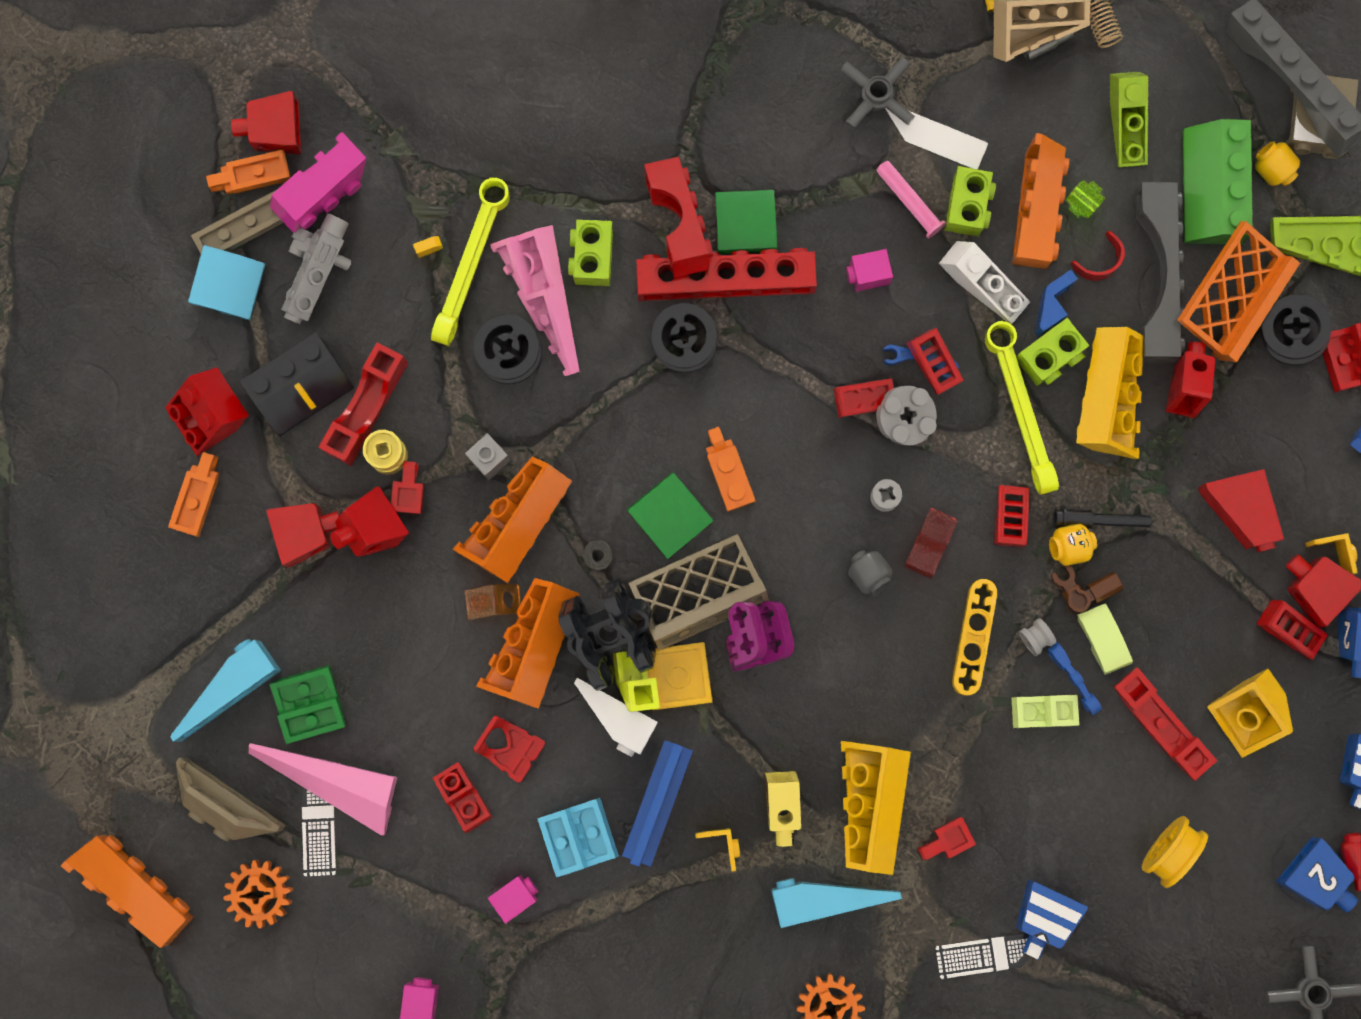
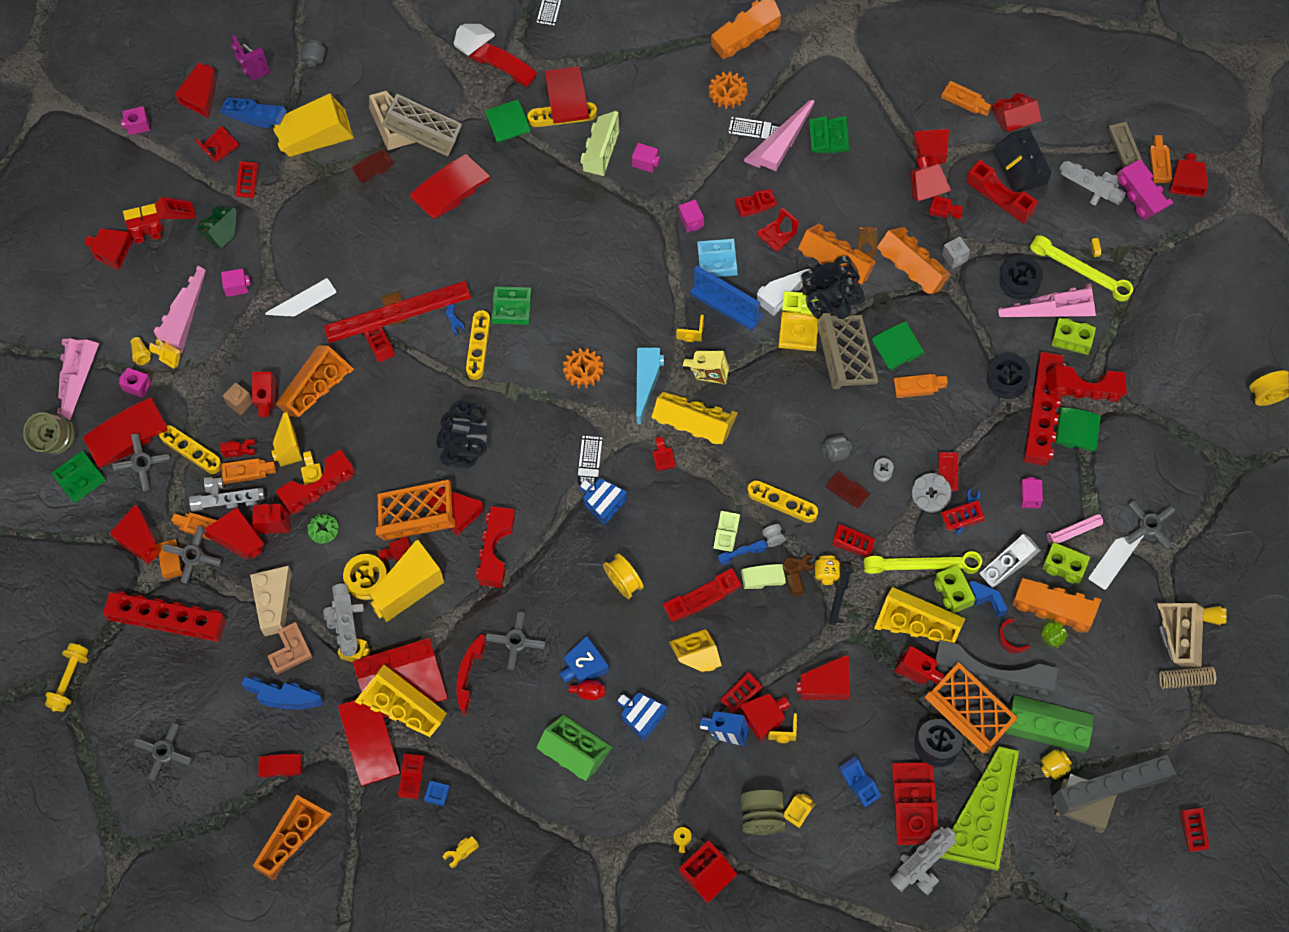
camera: 105 degrees right, 15 degrees down
(221, 805) = (784, 79): dark tan wedge -> none
(226, 282) = (1092, 136): medium azure slope -> none
(236, 679) = (850, 96): medium azure slope -> none
(385, 452) = (970, 198): light yellow wheel -> none
(756, 636) = (804, 373): magenta piece -> none
(1130, 117) = (1106, 678): lime slope -> none

